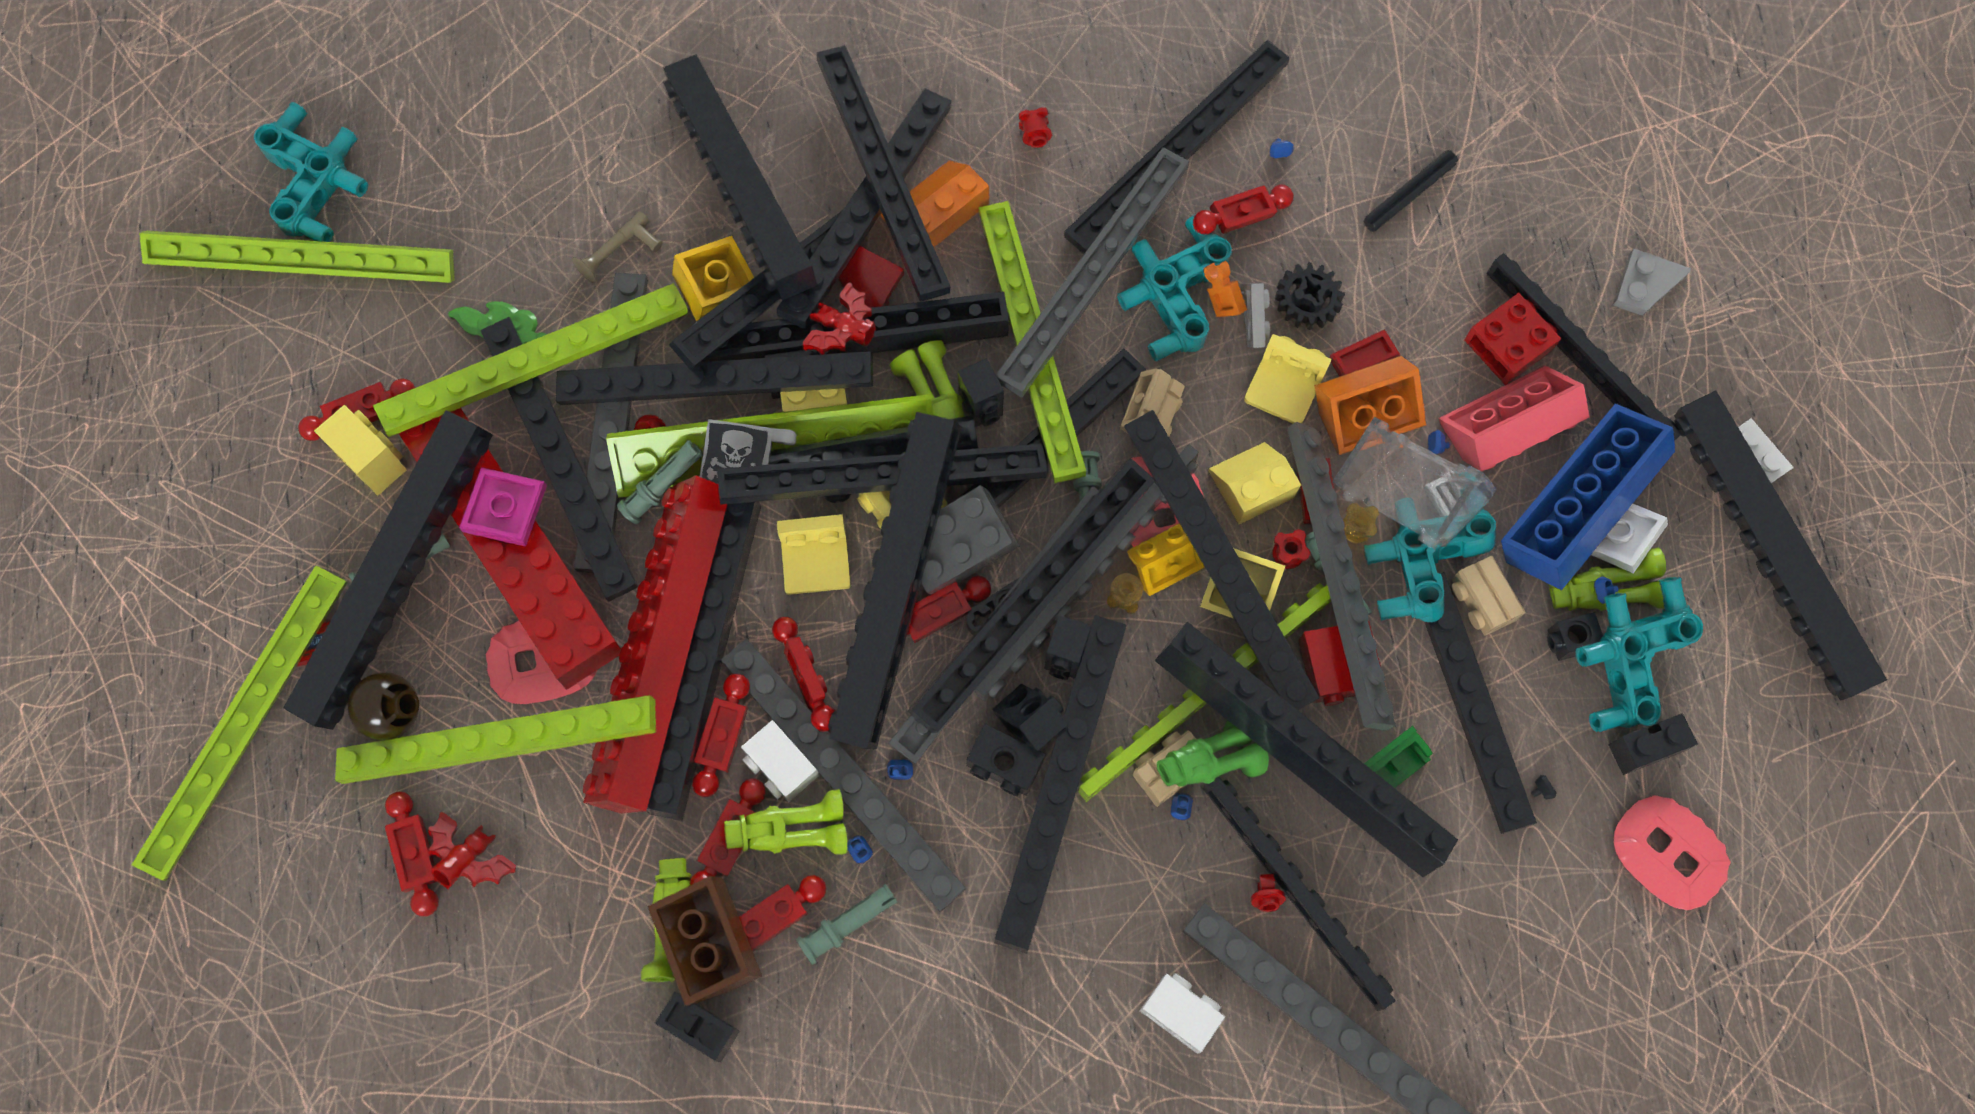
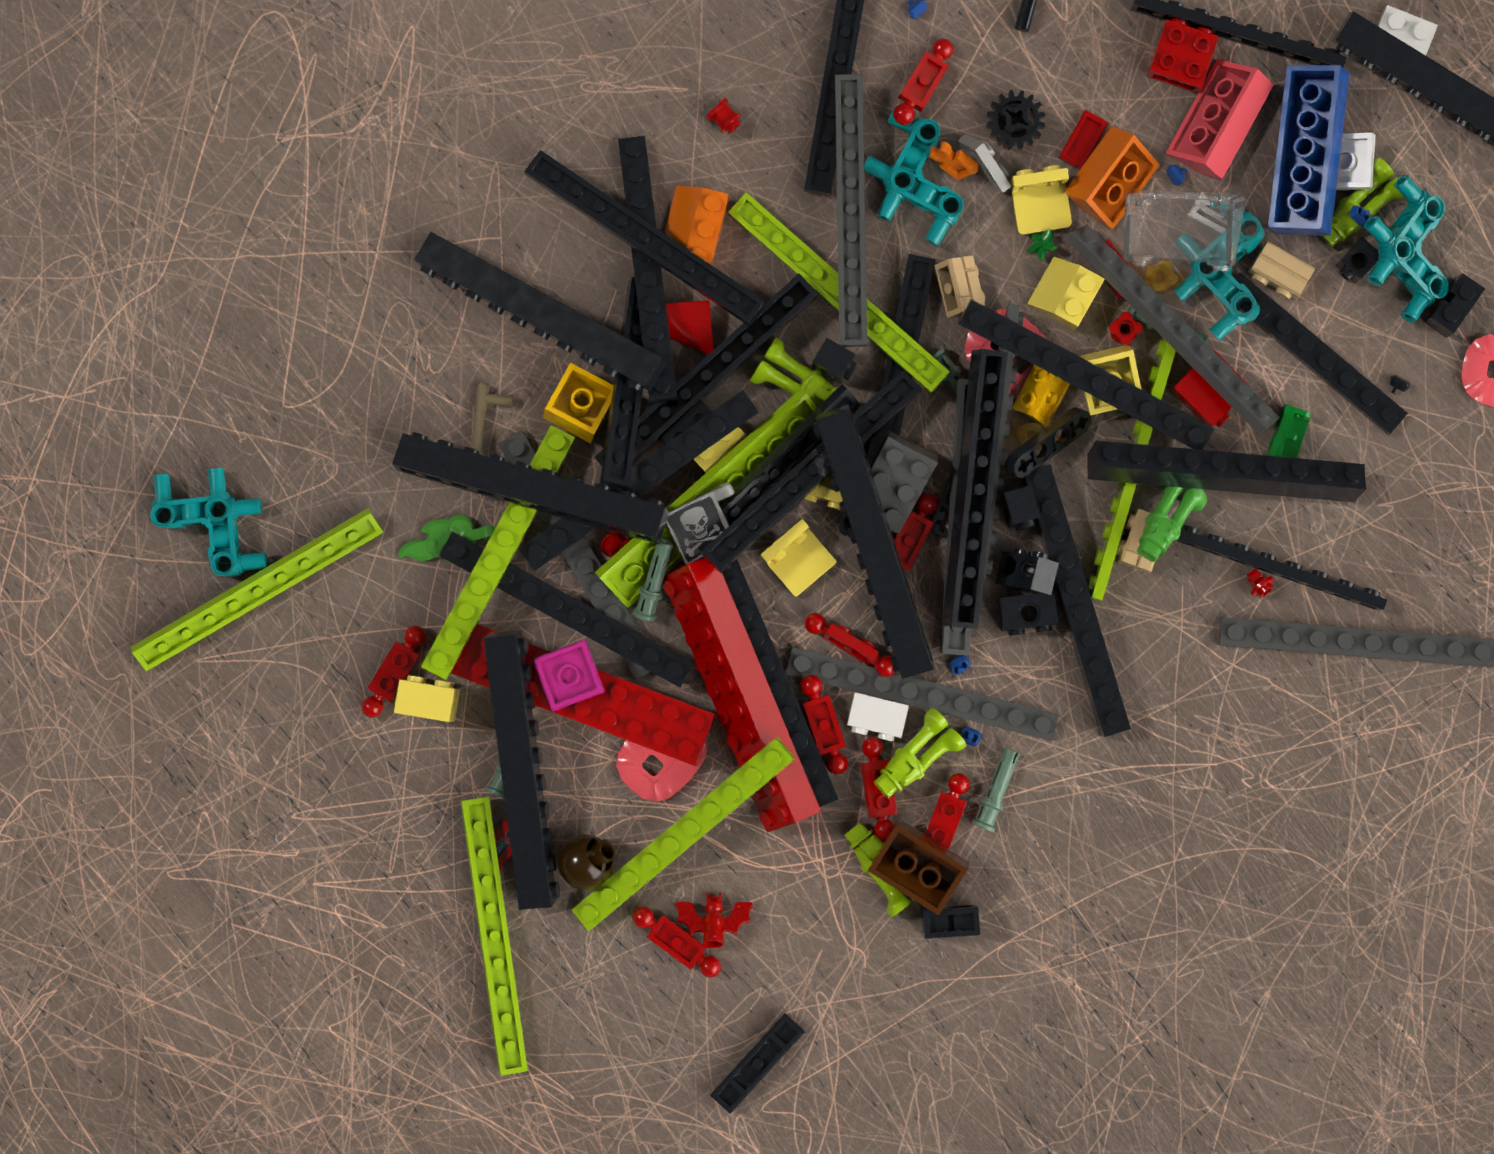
camera: 30 degrees left, 15 degrees up
(392, 1040) = (757, 1063): none -> black plate
(608, 318) = (531, 488): none -> black brick
(846, 325) = (708, 378): red animal -> none
(1140, 600) = (1024, 459): none -> black beam
(1181, 806) = (1165, 562): blue rock -> none
(1182, 1012) = (1254, 699): white brick -> none
(1261, 422) = (1043, 244): none -> green plant

